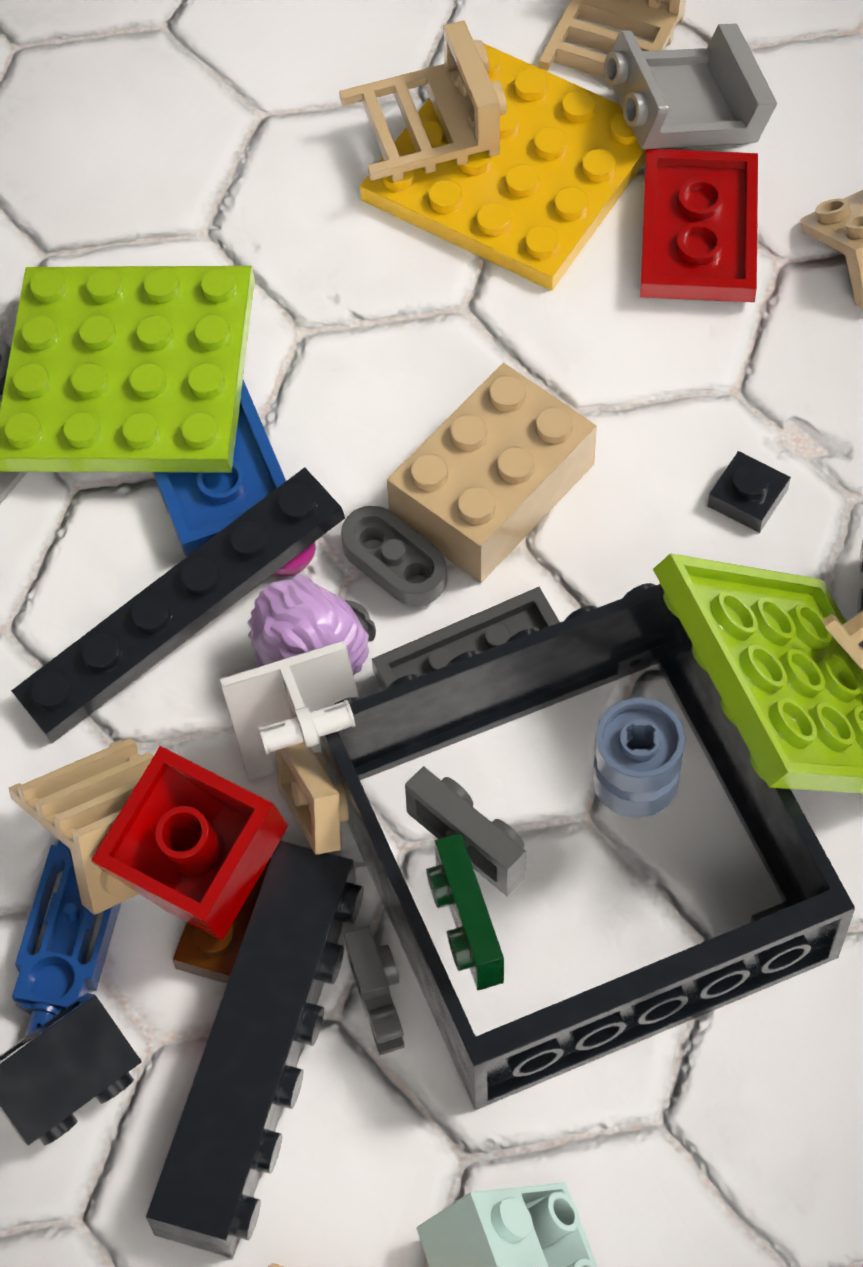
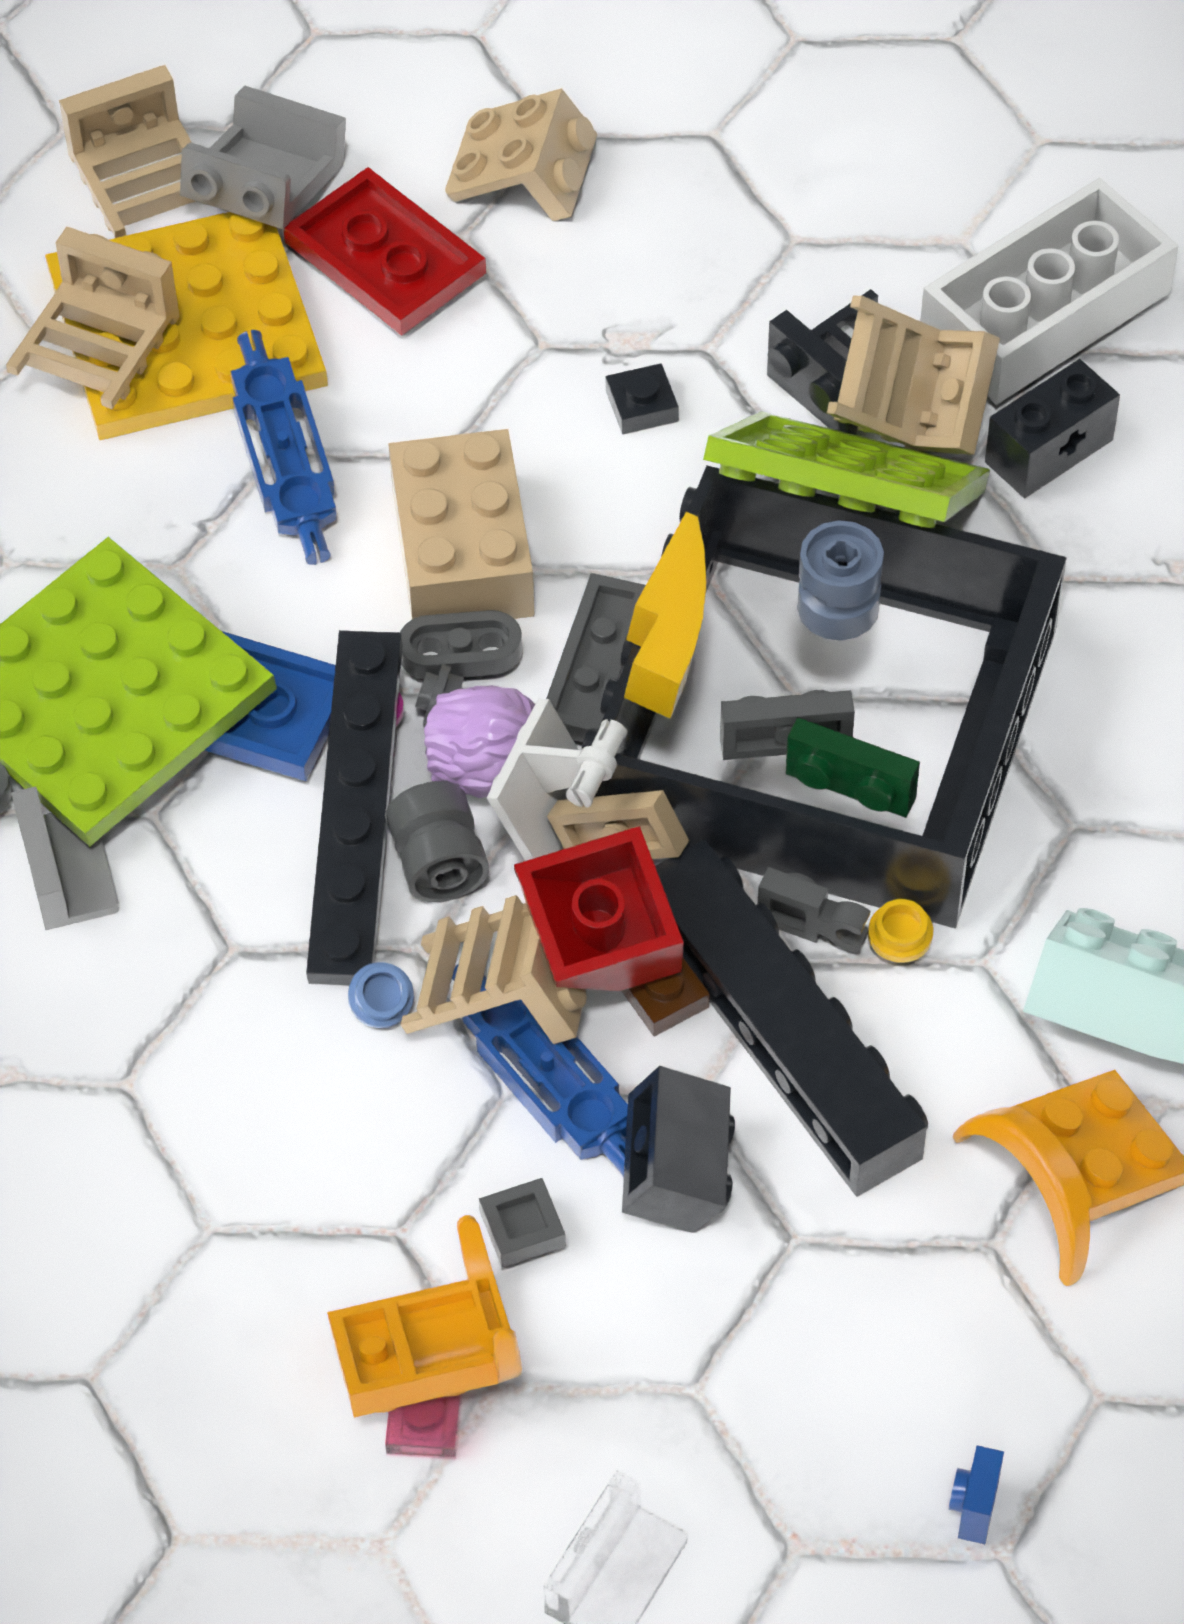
camera: 50 degrees left, 5 degrees down
(34, 751) = (380, 995): none -> medium blue plate
(188, 689) = (437, 841): none -> dark grey wheel
(337, 574) = (436, 684): none -> dark grey plate
(423, 1071) = (900, 931): none -> yellow plate
(426, 350) = (299, 497): none -> blue piece
(484, 668) = (668, 621): none -> yellow slope

